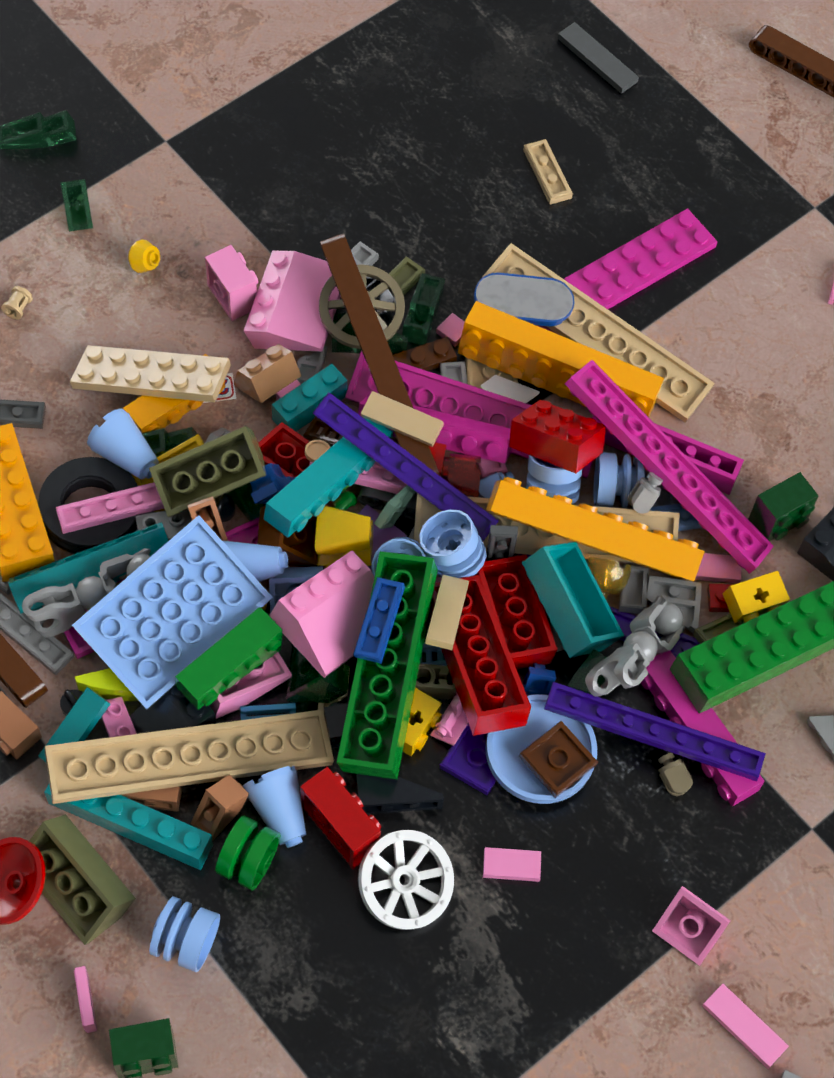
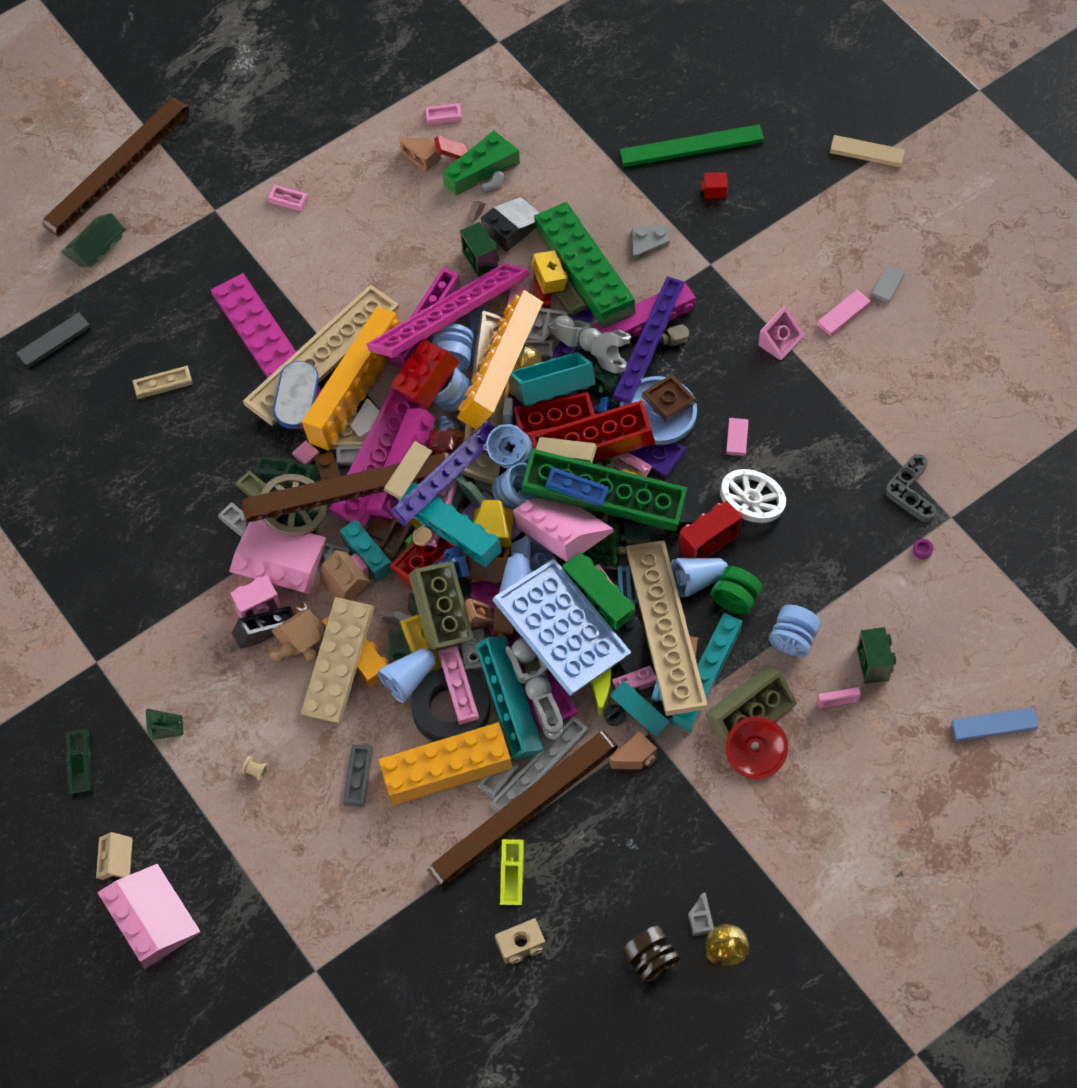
camera: 80 degrees left, 0 degrees up
(143, 256) = (220, 669): yellow cone -> none
(189, 330) = (297, 635): none -> medium nougat torso
(205, 299) = (258, 627): none -> black slope
(219, 806) = (701, 611): nougat slope -> none
(645, 493) = (471, 325): light grey arm -> none
(743, 81) = (94, 240): none -> clear green slope

